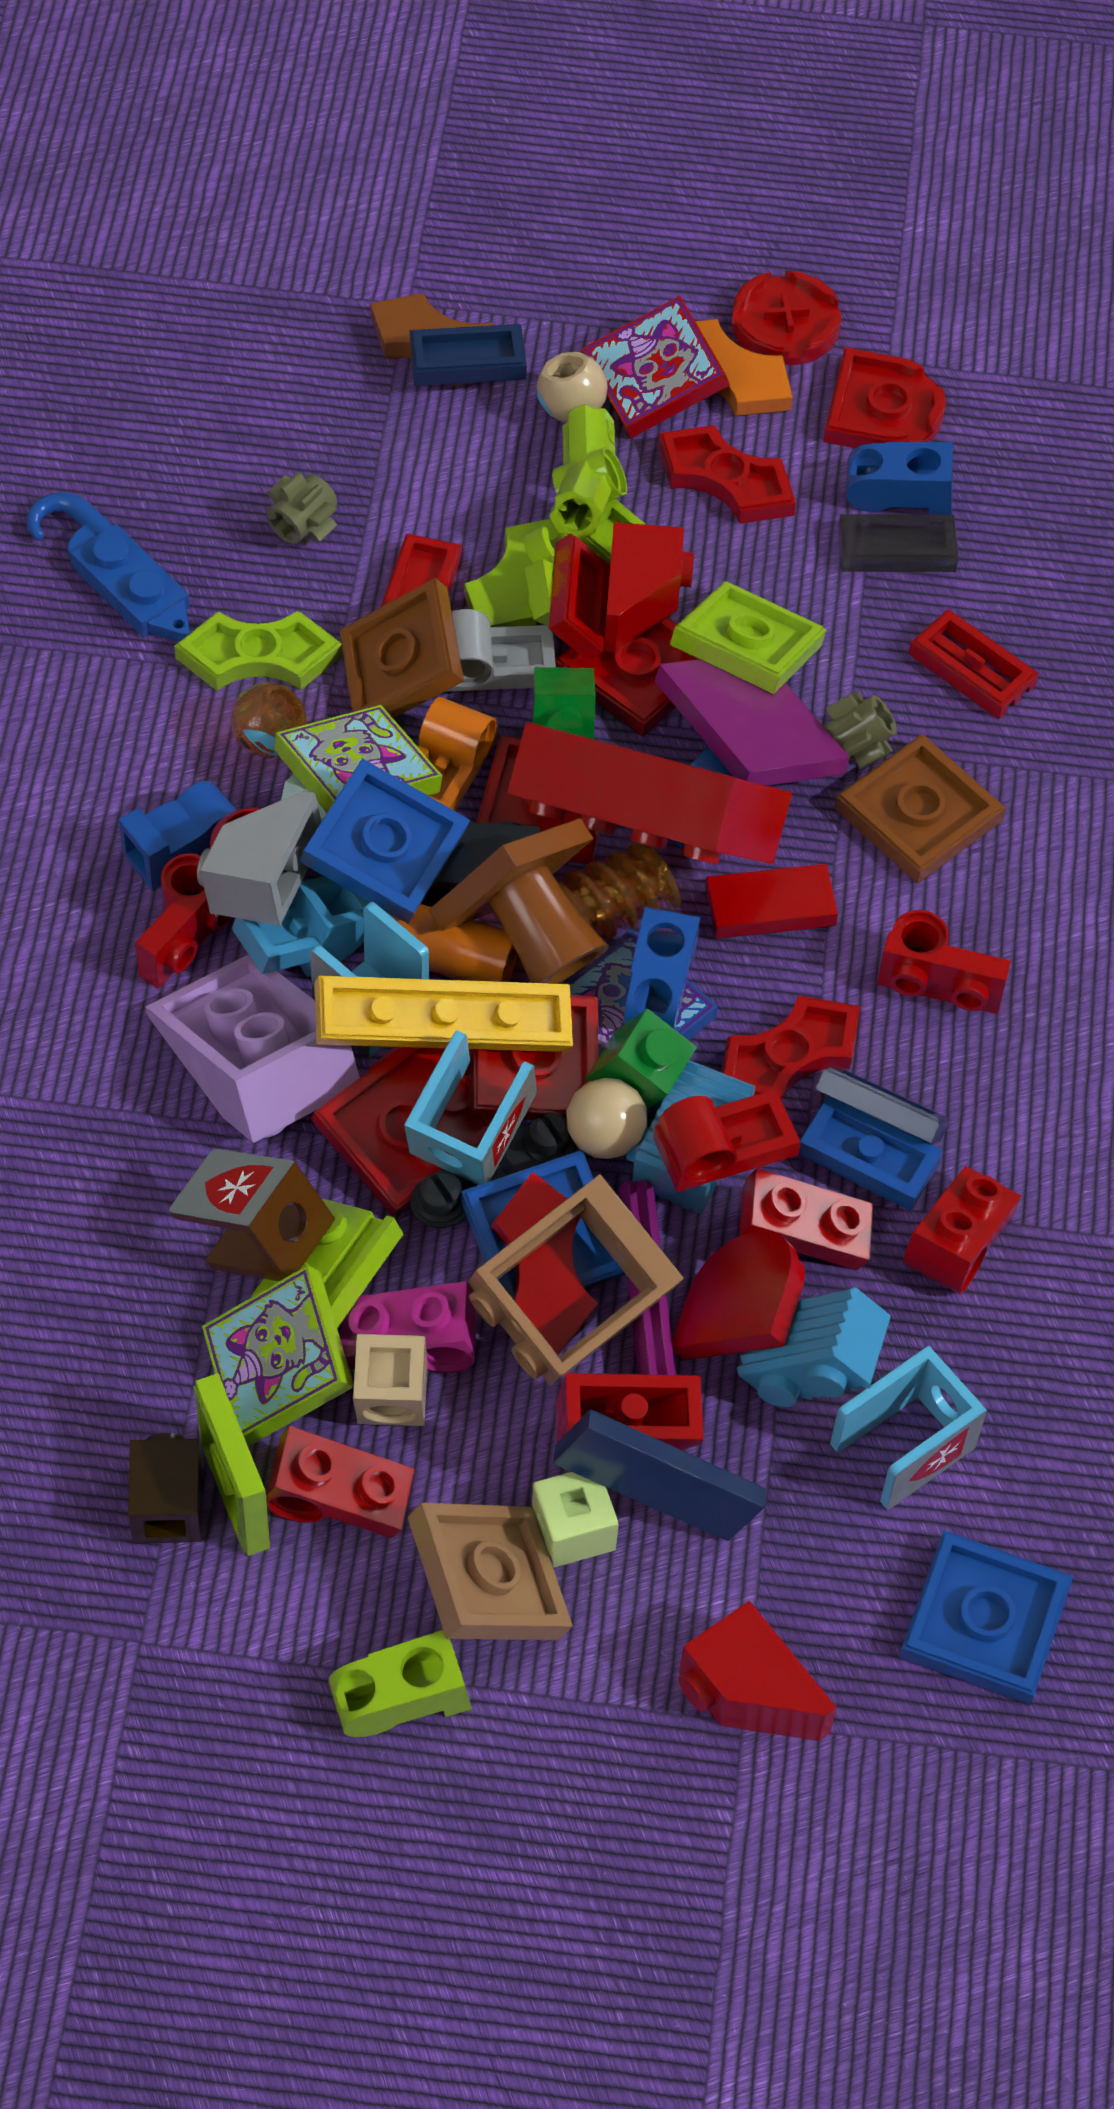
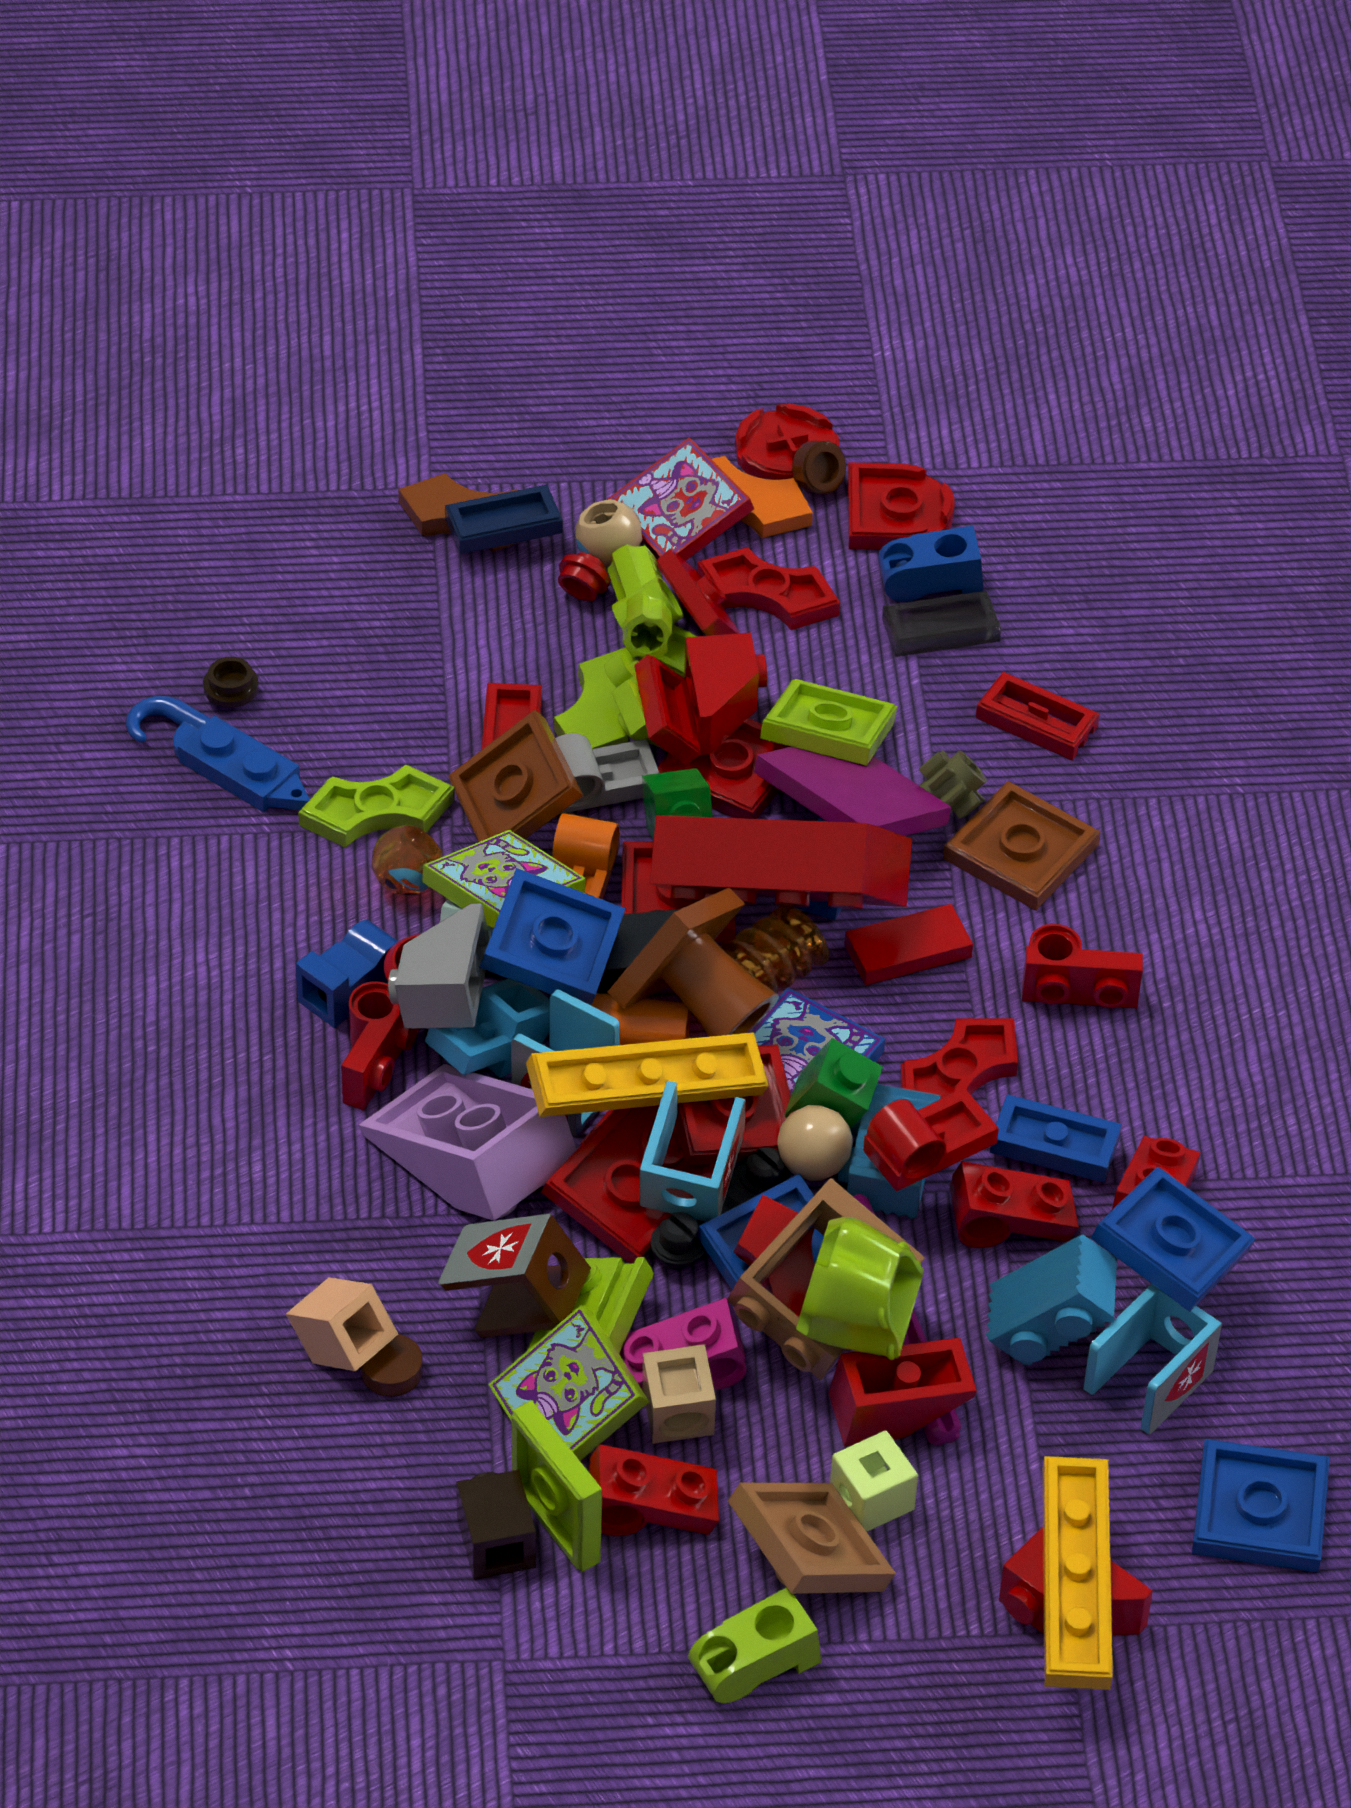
camera: 10 degrees left, 10 degrees down
(62, 1234) = (342, 1324): none -> light nougat brick
(108, 1284) = (394, 1368): none -> reddish brown tile
(143, 490) = (230, 682): none -> dark brown plate
(302, 508) = (386, 675): olive gear -> none
(535, 430) = (583, 576): none -> red plate
(600, 1311) = (861, 1290): none -> lime piece
(648, 475) = (698, 594): none -> red plate
(659, 1475) = (945, 1427): dark blue tile -> none
(661, 964) = (827, 1007): blue leg -> none
(741, 1298) = (975, 1273): red tile -> none
(757, 1674) = (1076, 1573): none -> yellow tile
(811, 348) = (819, 467): none -> reddish brown tile
(883, 1104) = (1057, 1094): tile -> none
(957, 1303) = (1173, 1238): none -> blue tile

